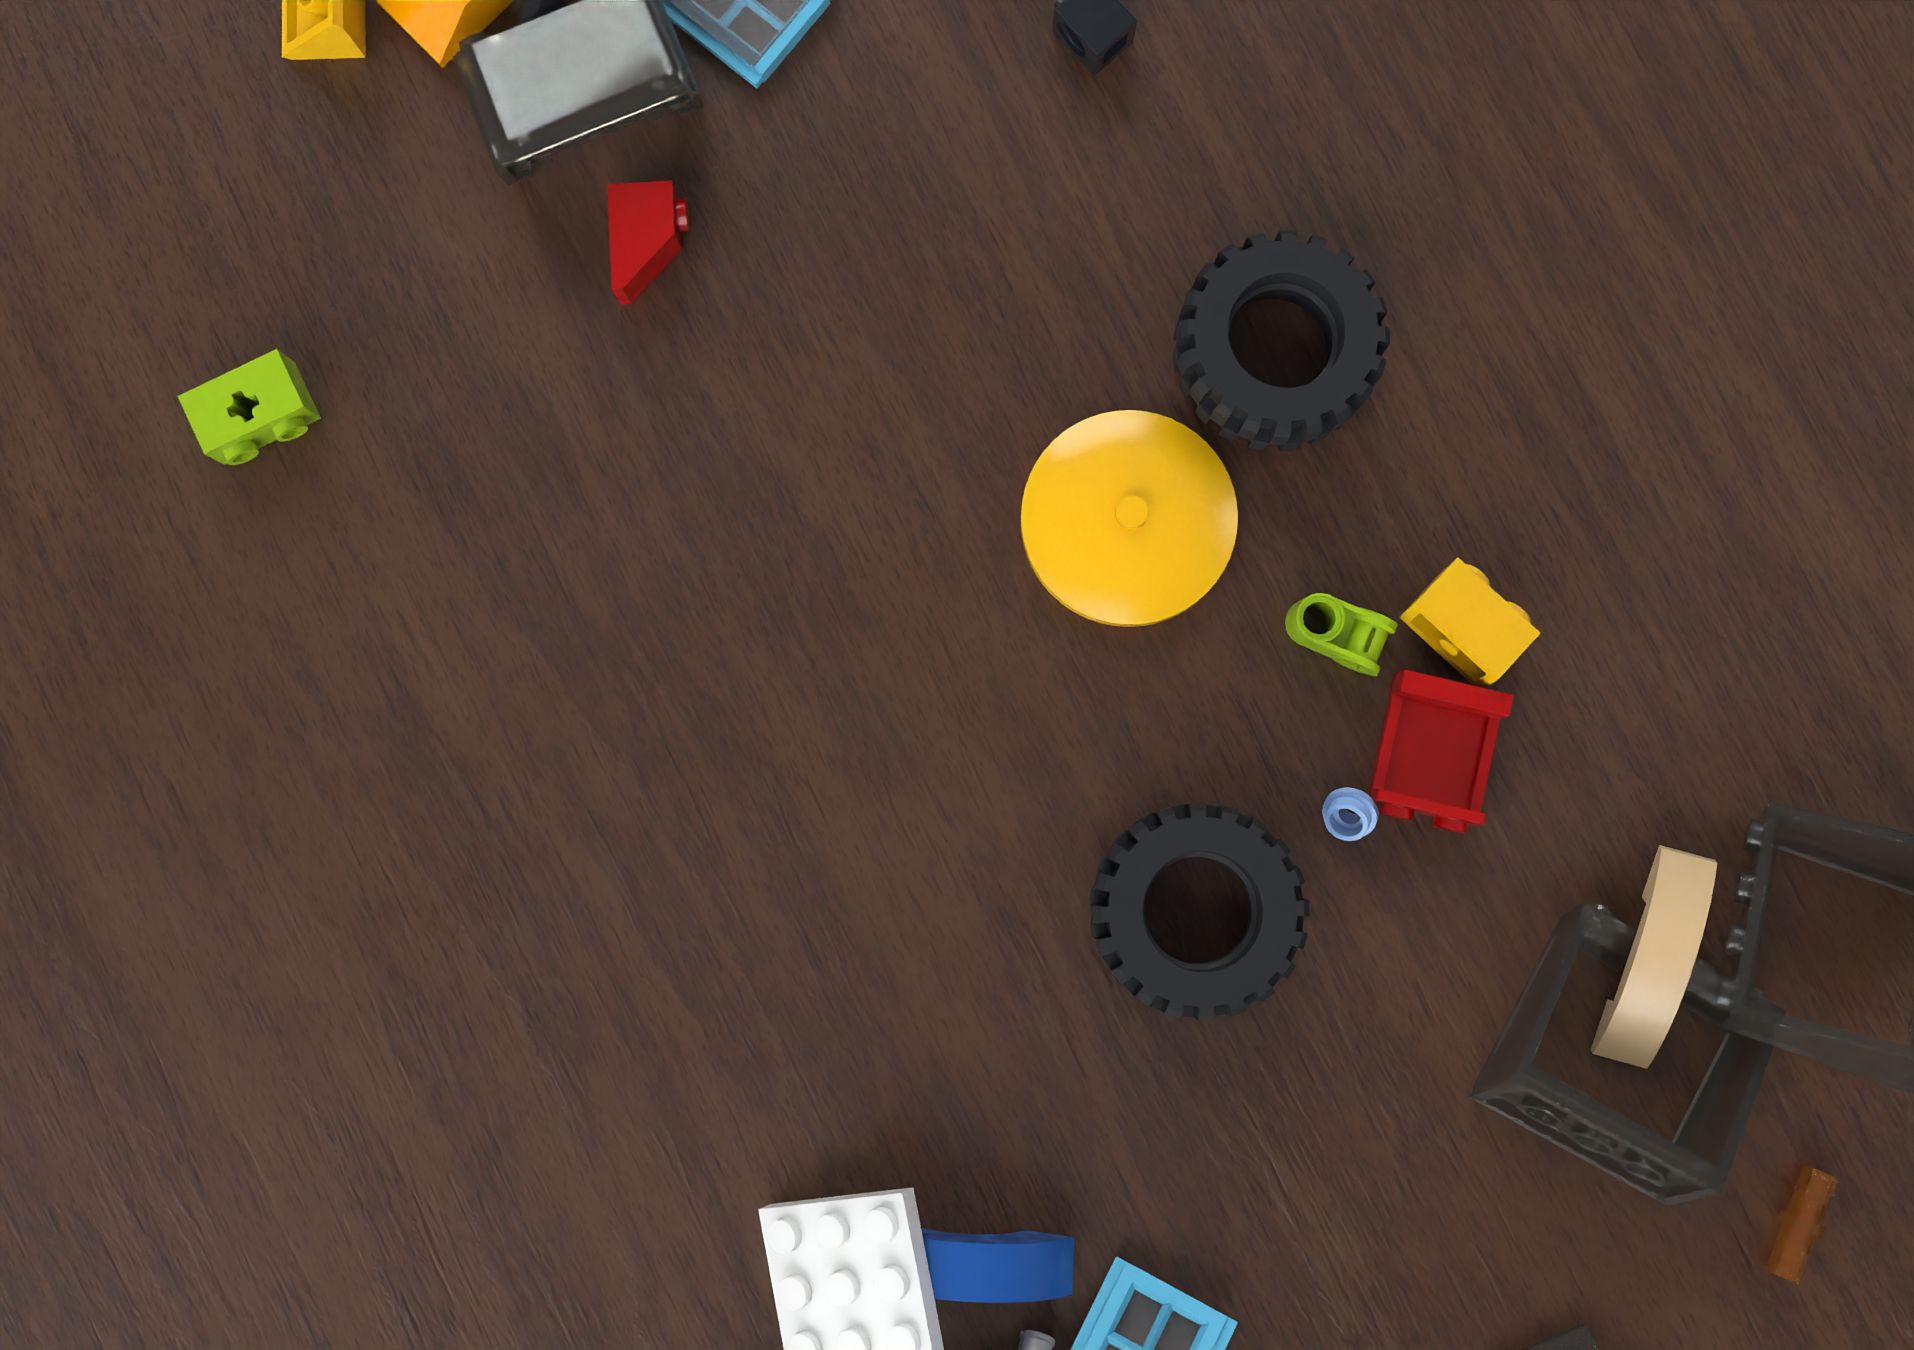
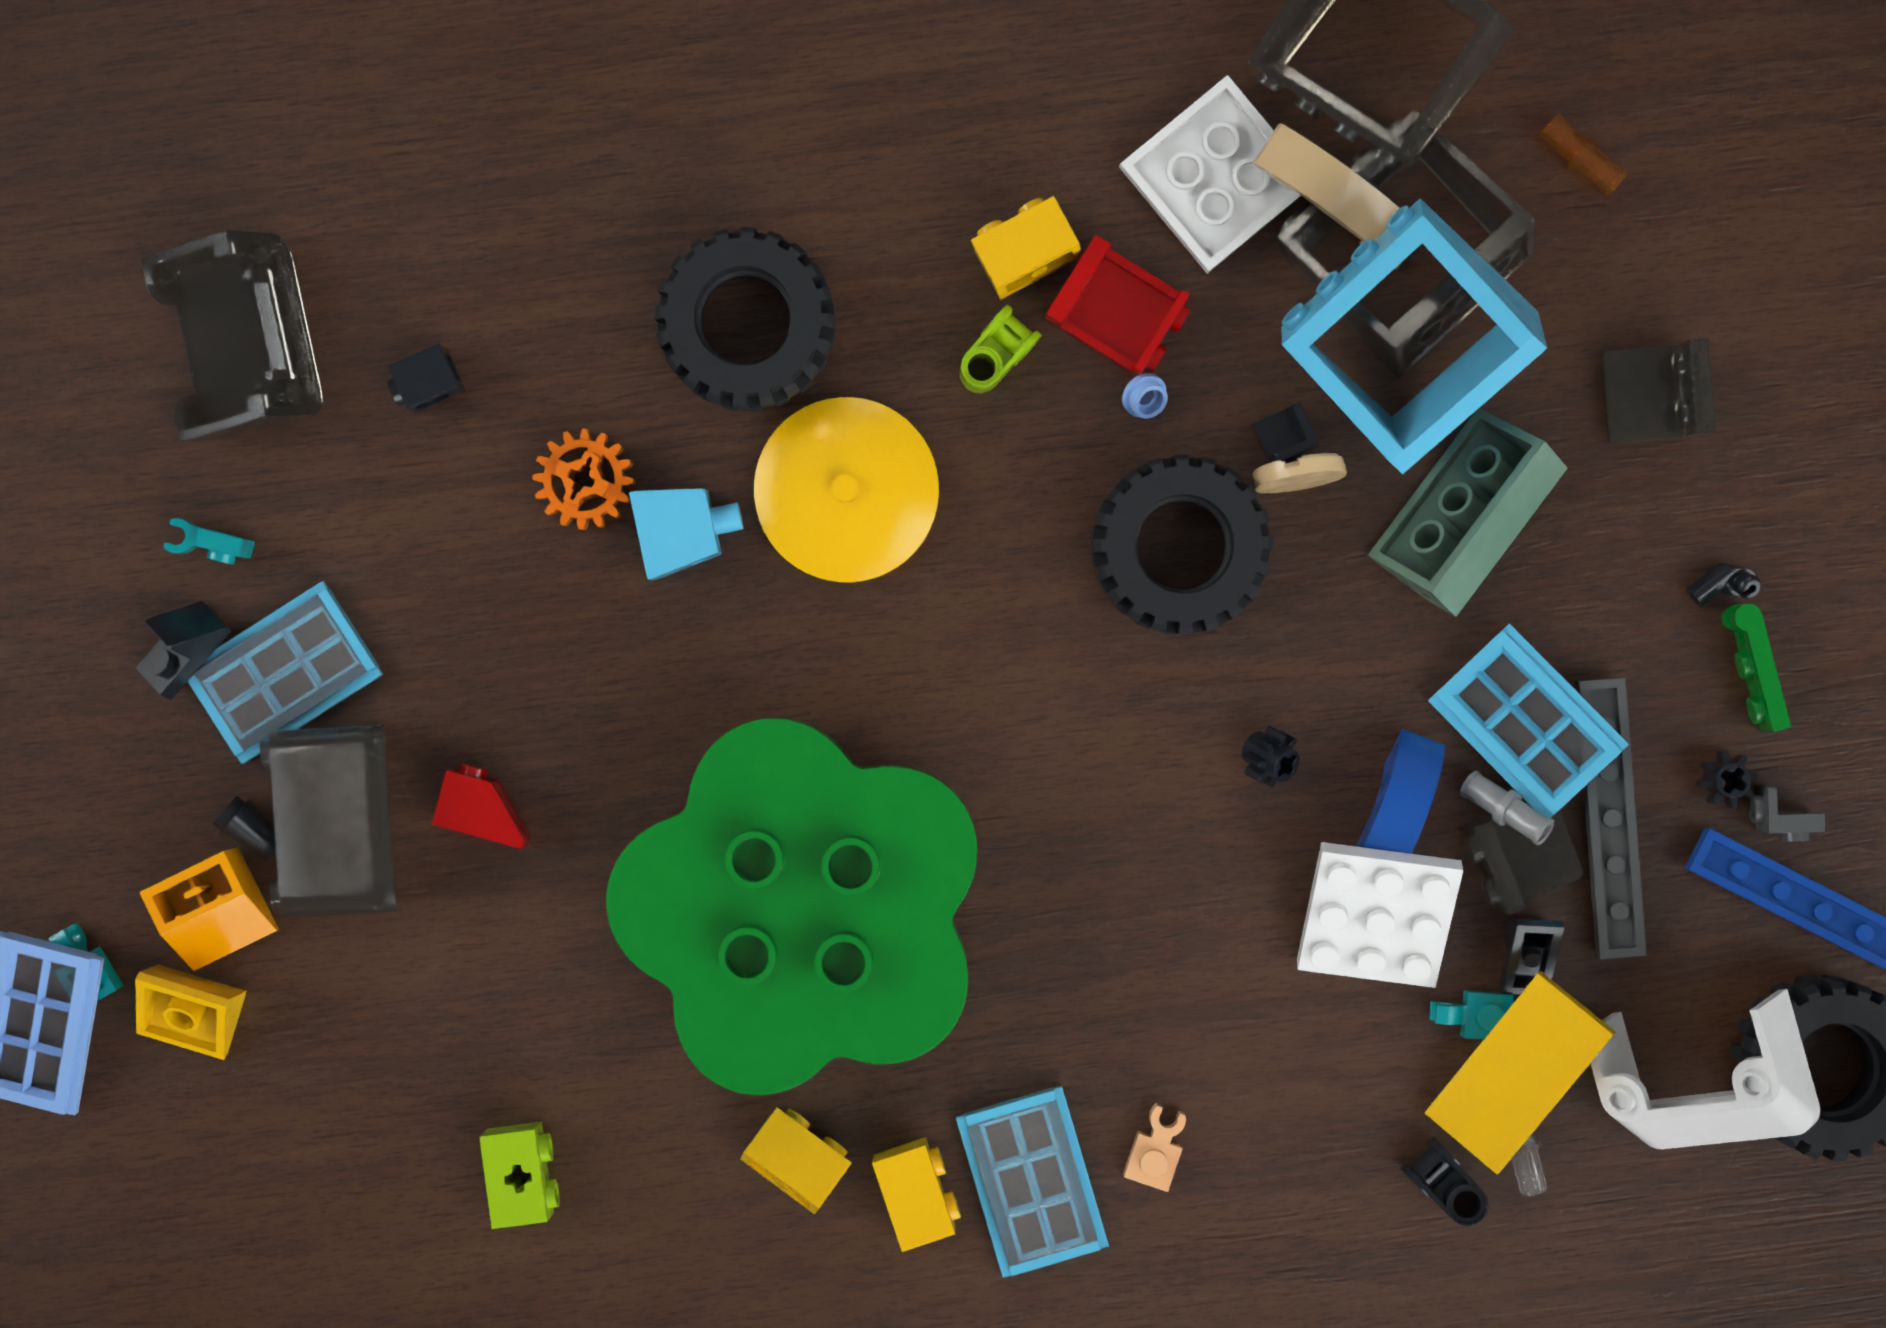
camera: 75 degrees left, 5 degrees up
(361, 709) = (796, 1159): none -> yellow brick
(363, 855) = (915, 1193): none -> yellow brick
(420, 985) = (1032, 1181): none -> clear piece
(493, 1115) = (1154, 1155): none -> light nougat plate
(641, 613) = (800, 908): none -> green plant
(991, 1095) = (1270, 756): none -> black gear
(1021, 225) = (593, 459): none -> orange gear
(1023, 348) = (680, 528): none -> medium azure torso
(1328, 1027) = (1305, 473): none -> tan tile
(1350, 1230) = (1468, 510): none -> sand green slope
(1362, 988) = (1285, 434): none -> black panel
(1499, 1176) = (1458, 389): none -> medium azure windscreen
(1617, 800) = (1204, 175): none -> white plate

